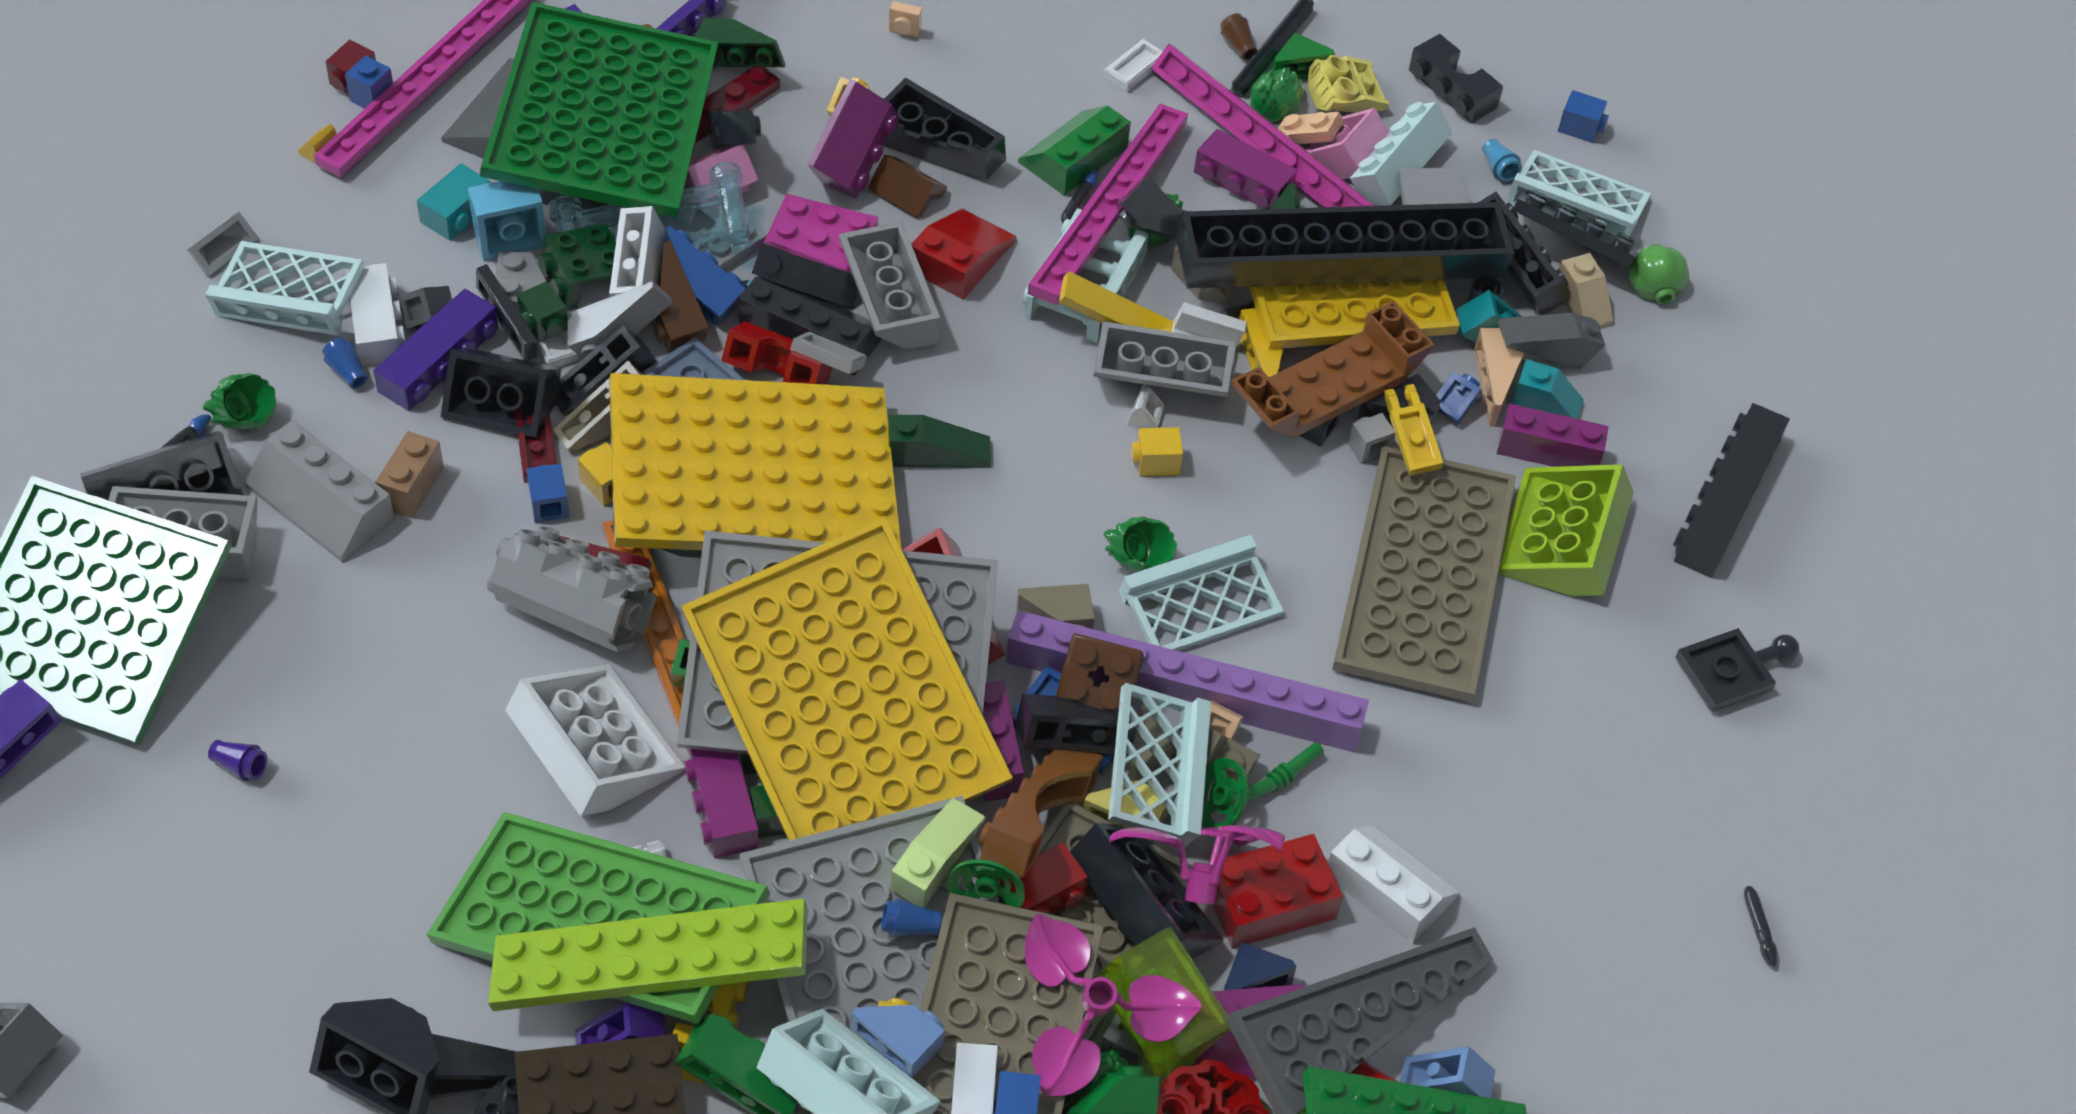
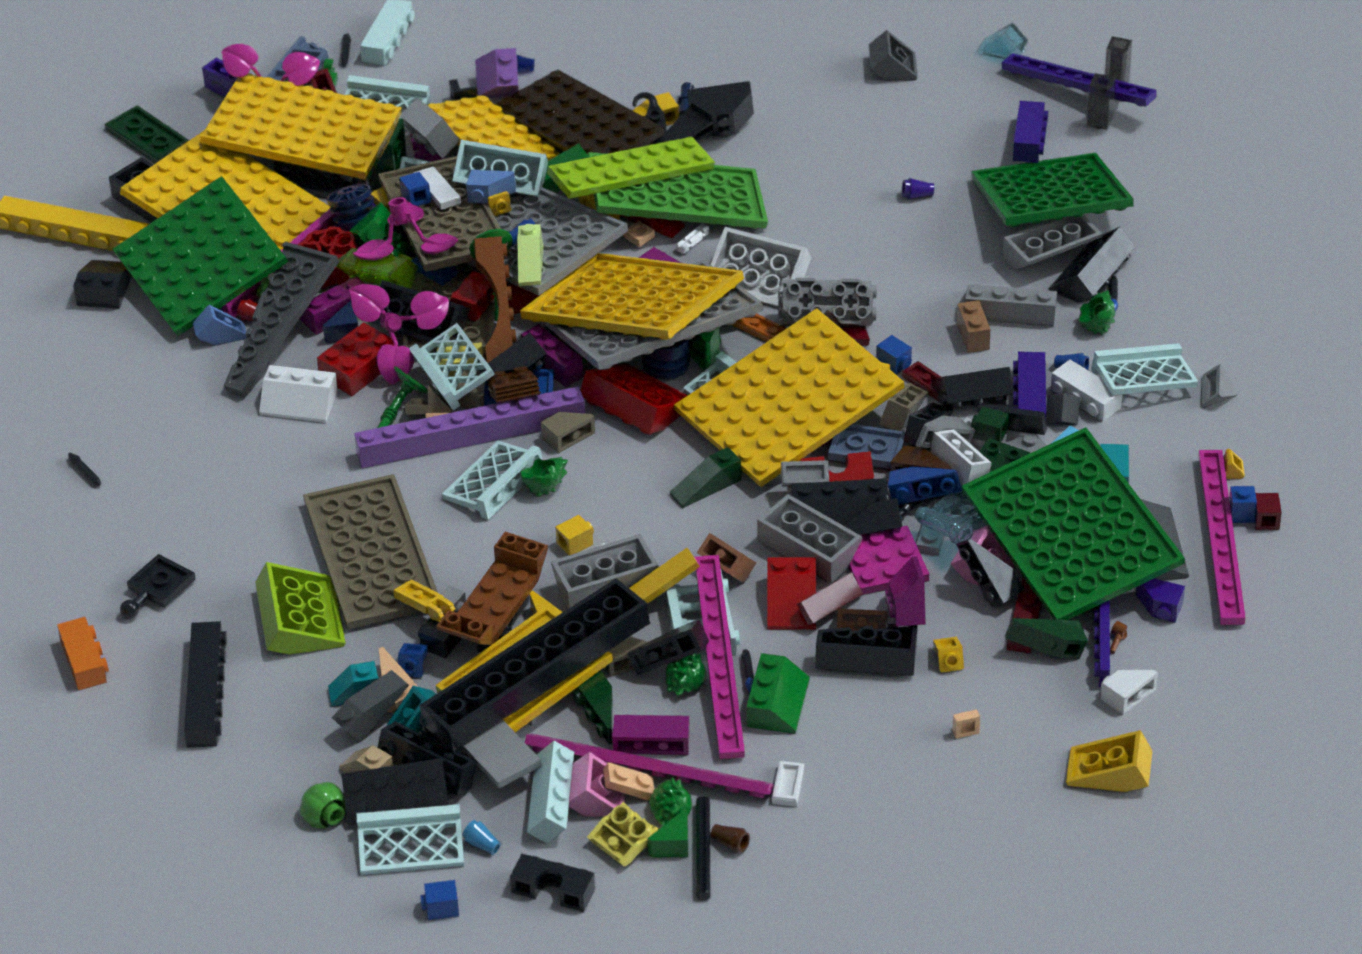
camera: 155 degrees right, 10 degrees down
(930, 211) = (829, 599): none -> tile
(1005, 314) = (730, 559): none -> nougat brick
(1551, 438) = (334, 654): magenta brick -> none
(1872, 610) = (83, 653): none -> orange brick

